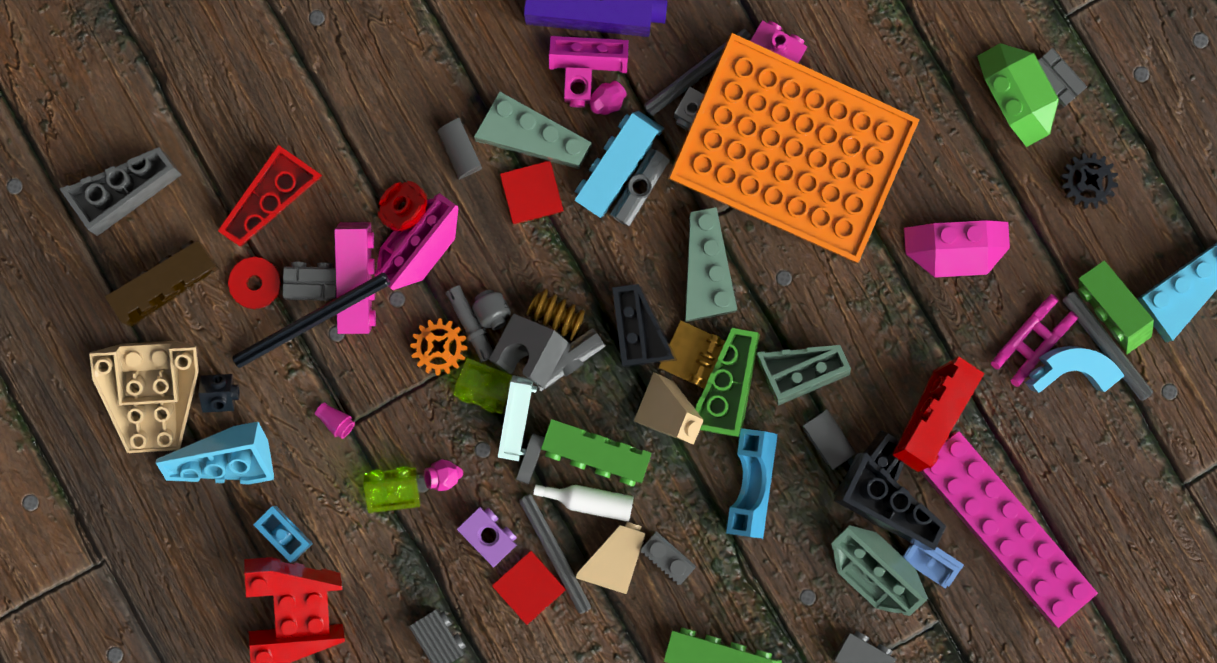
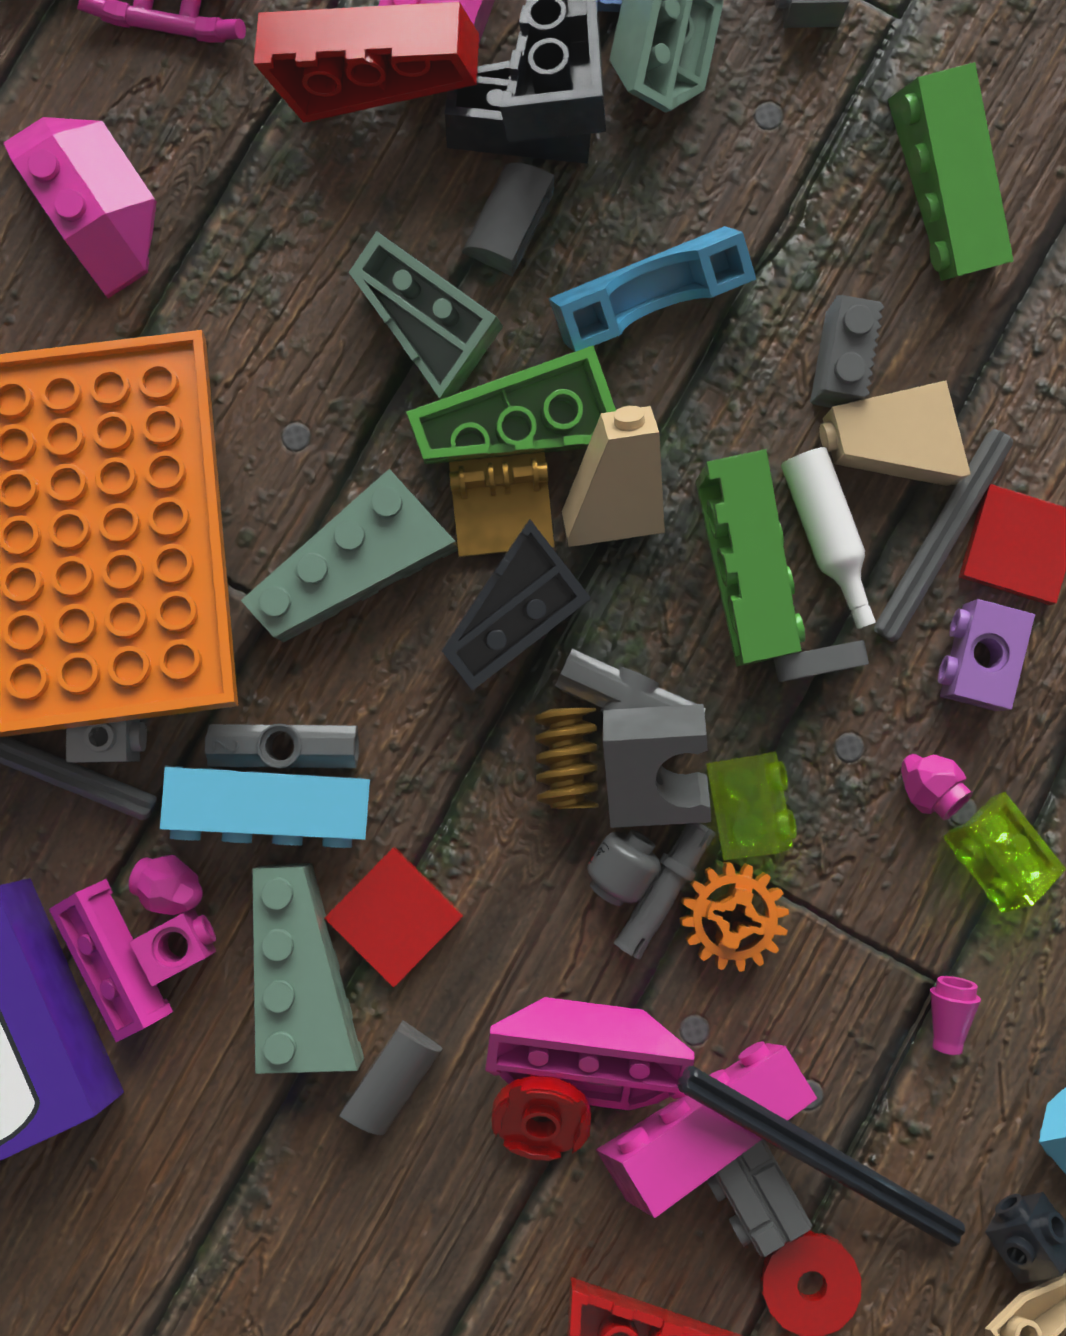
camera: 120 degrees left, 0 degrees up
(515, 418) = (777, 721): light aqua container -> none

